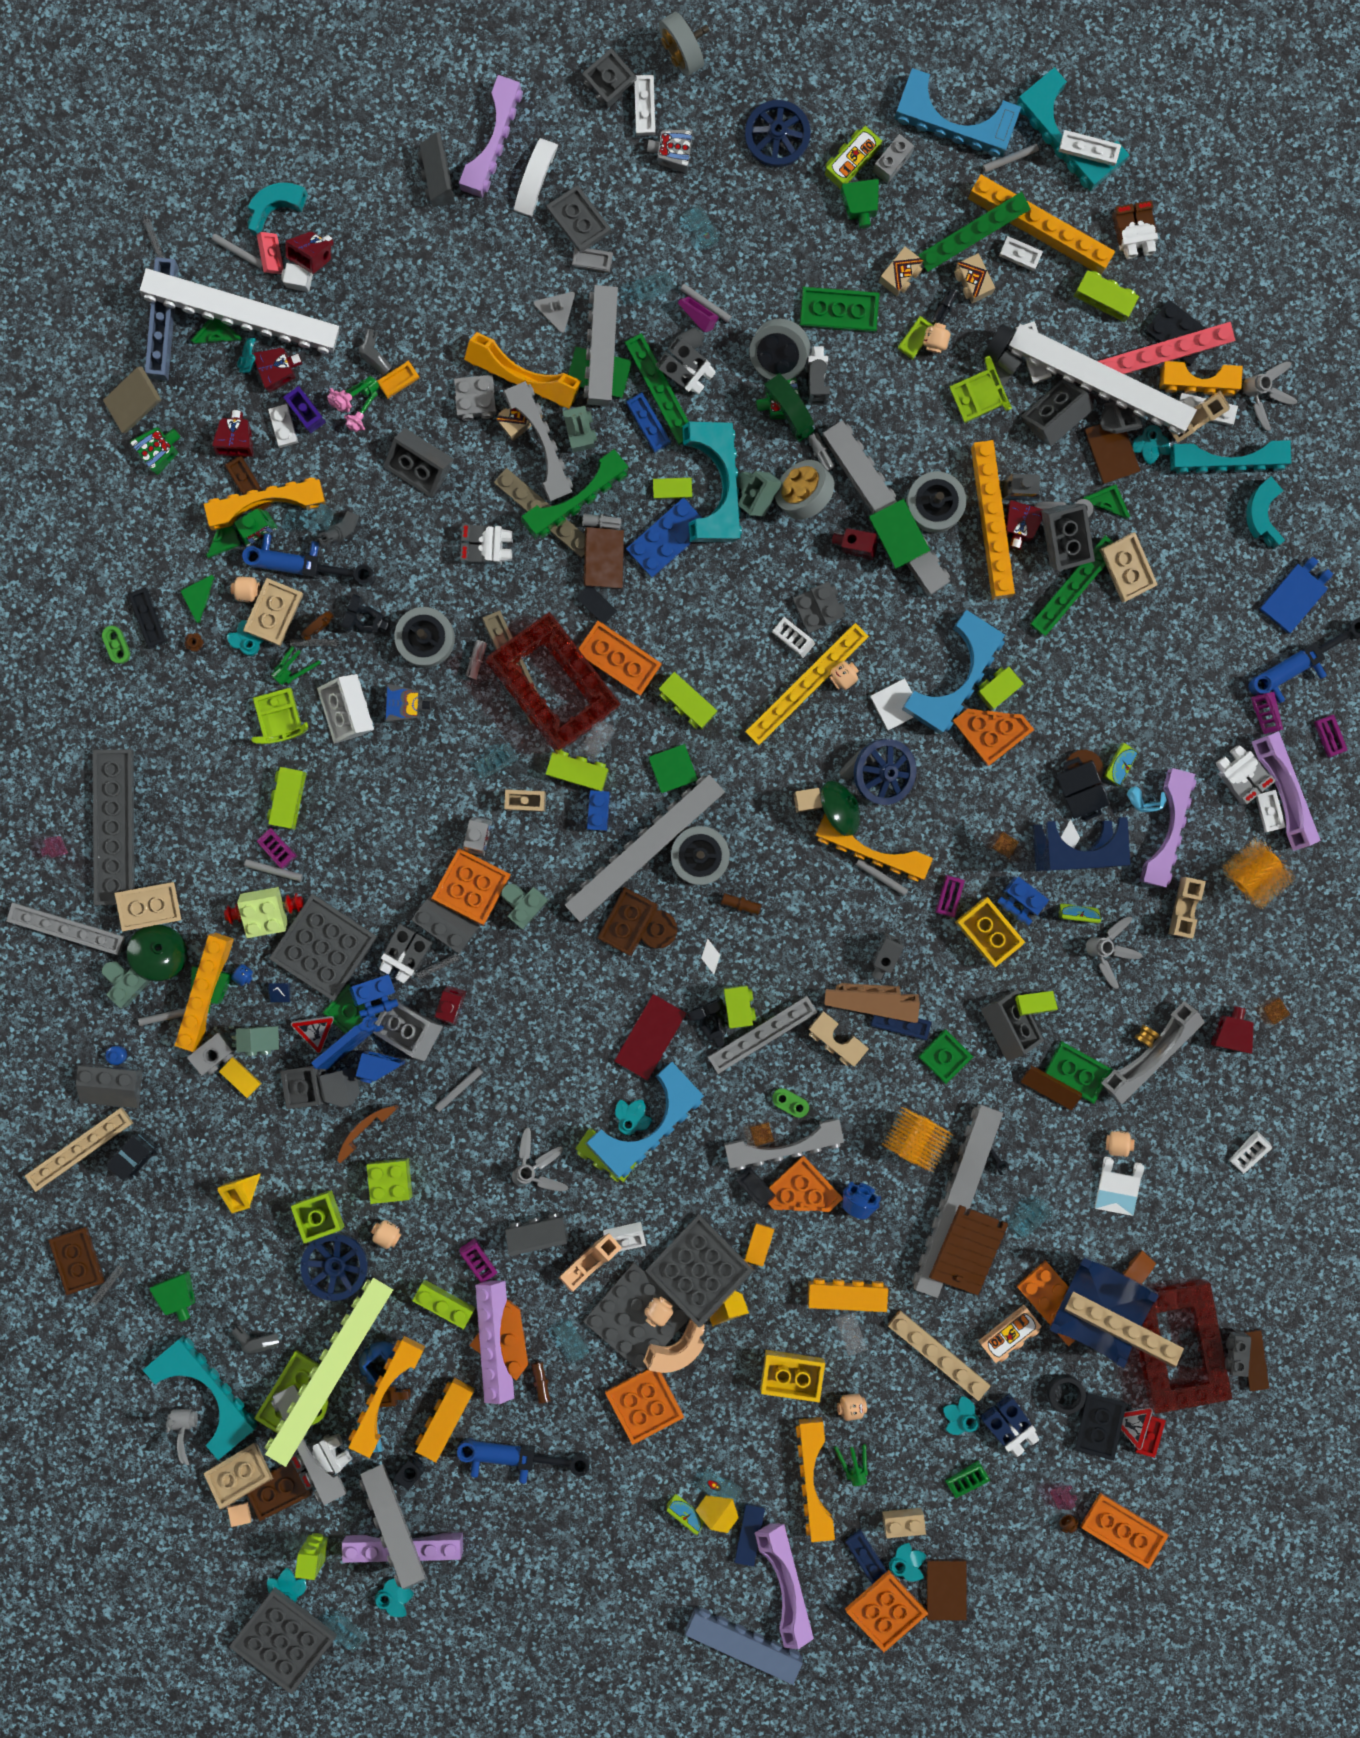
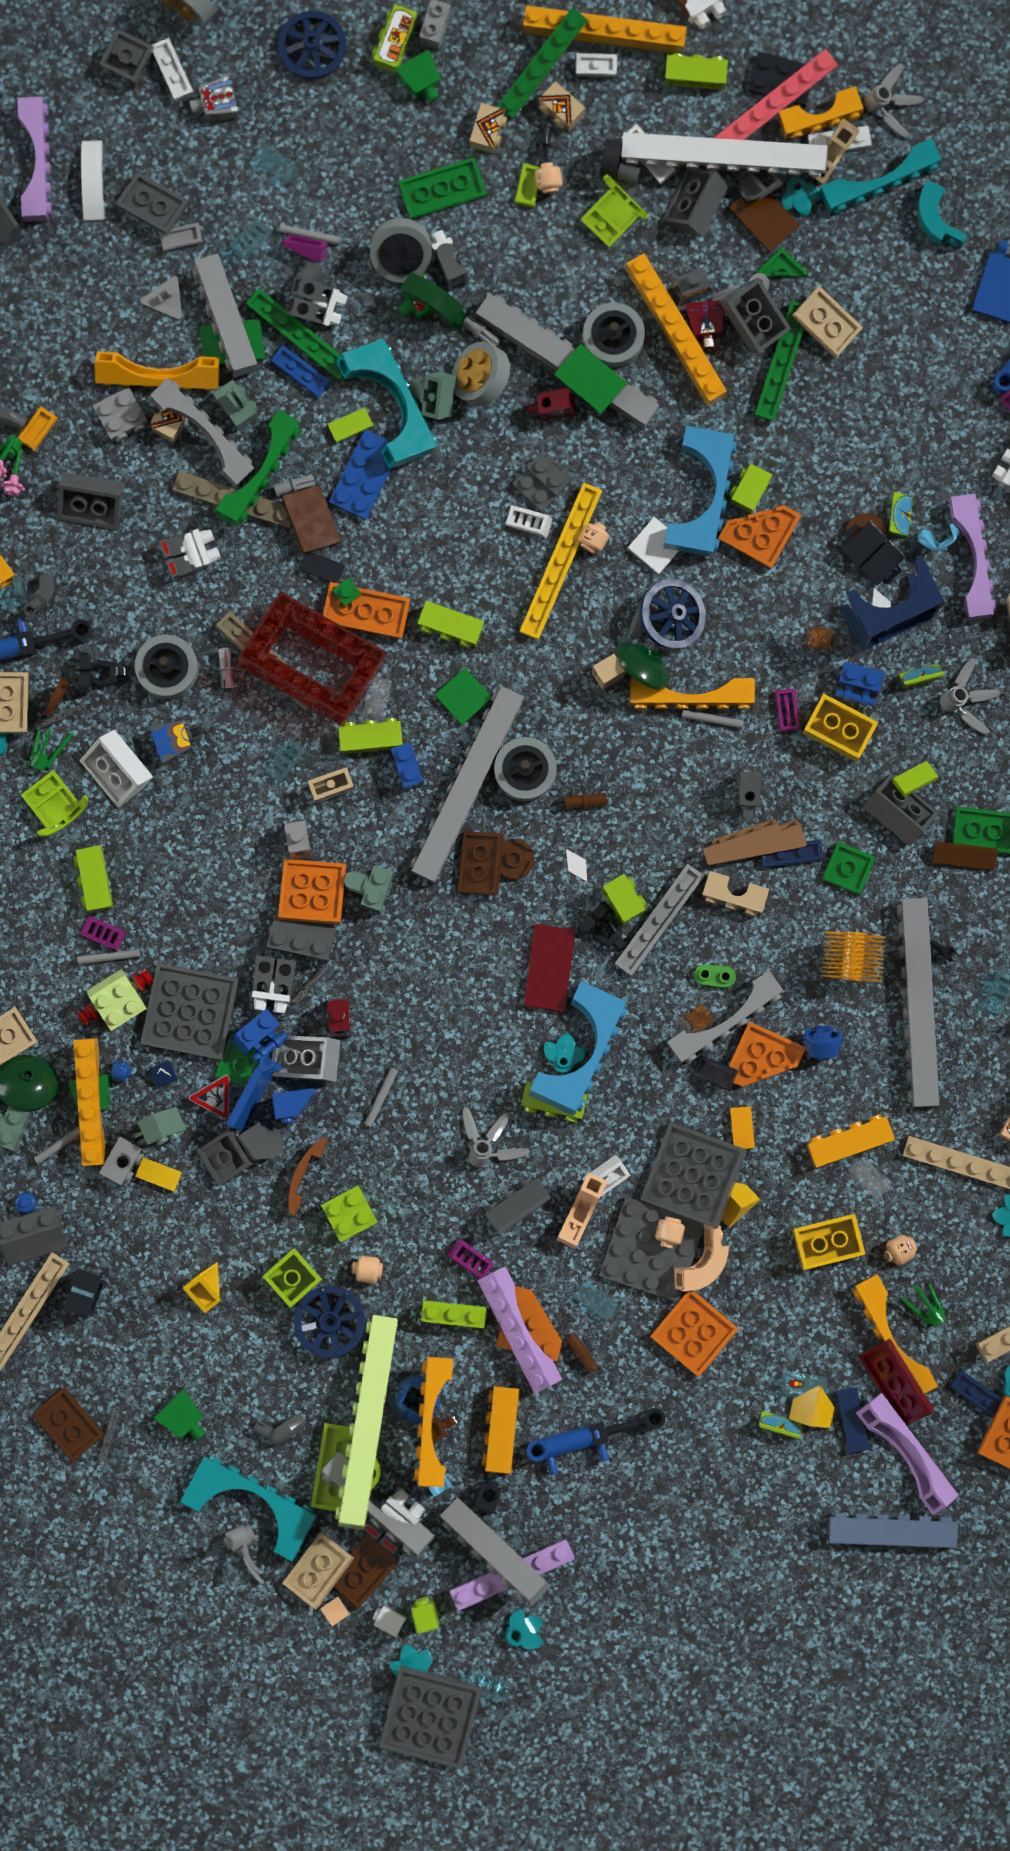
camera: 20 degrees left, 5 degrees down
(281, 1542) = (388, 1620): none -> white brick
(608, 636) = (347, 592): none -> green plate
(800, 1521) = (896, 1382): none -> dark red tile
(968, 1250) = (950, 1046): reddish brown door -> none

